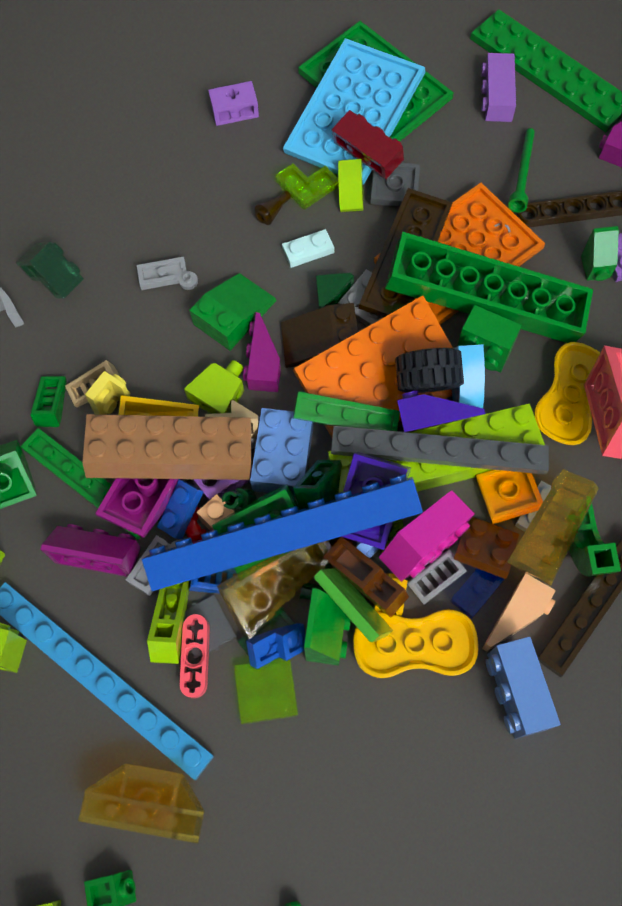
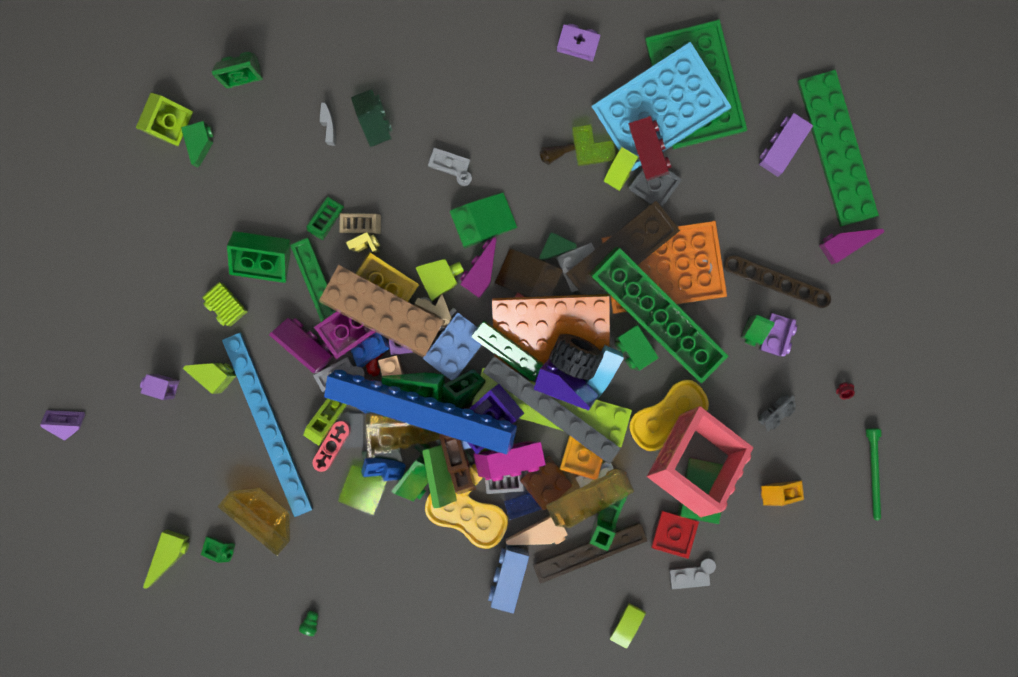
camera: 30 degrees right, 20 degrees up
(238, 498) = (409, 365): dark green pin -> none
(308, 248) = (562, 200): light aqua plate -> none
(519, 200) = (730, 253): green piece -> none

